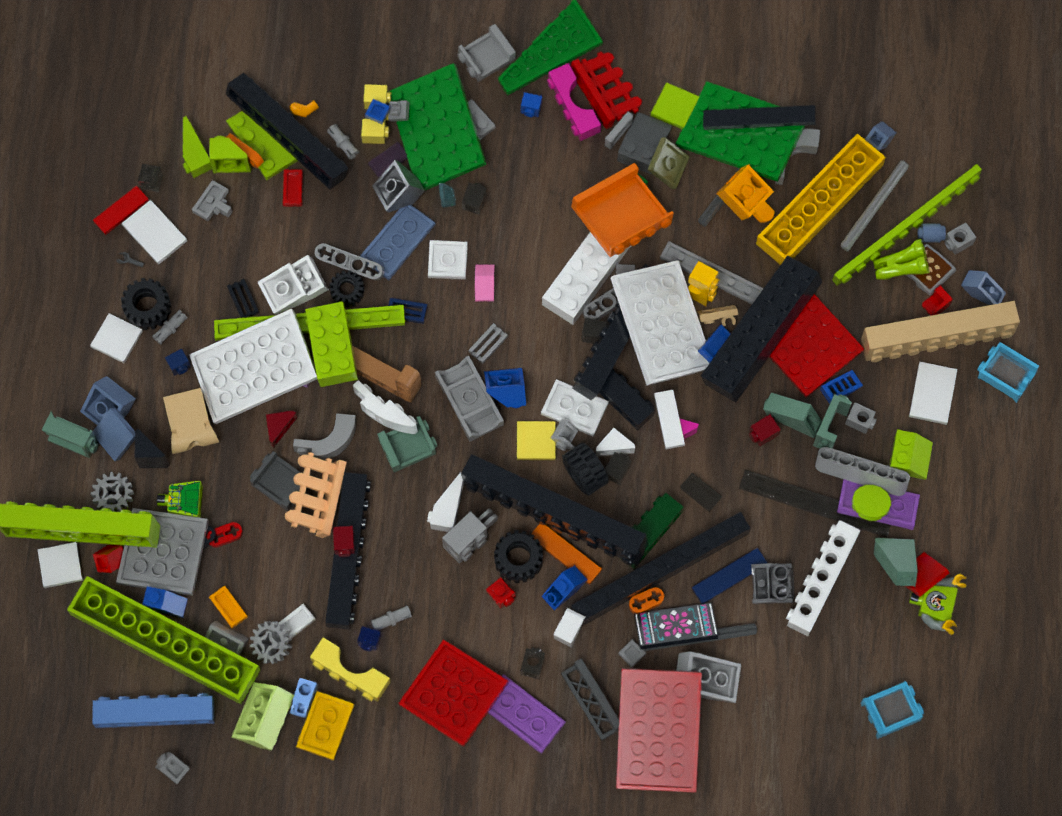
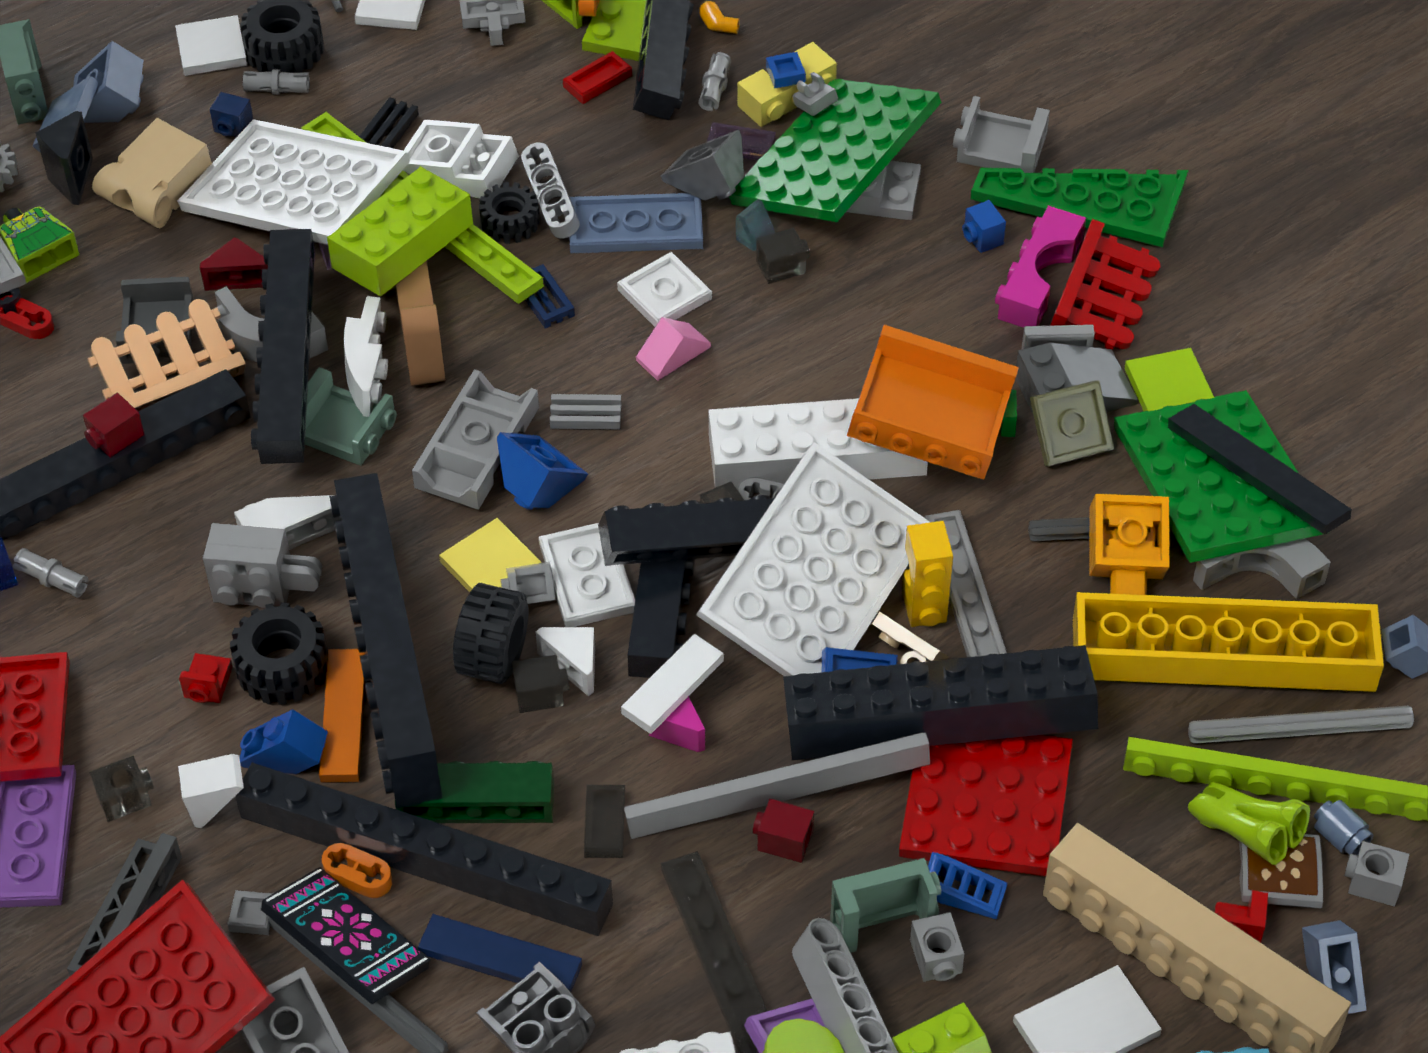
camera: 50 degrees right, 20 degrees down
(358, 438) = (285, 347): none -> black brick
(745, 417) = (777, 784): none -> light grey tile
(793, 414) = (845, 835): sand green slope -> none

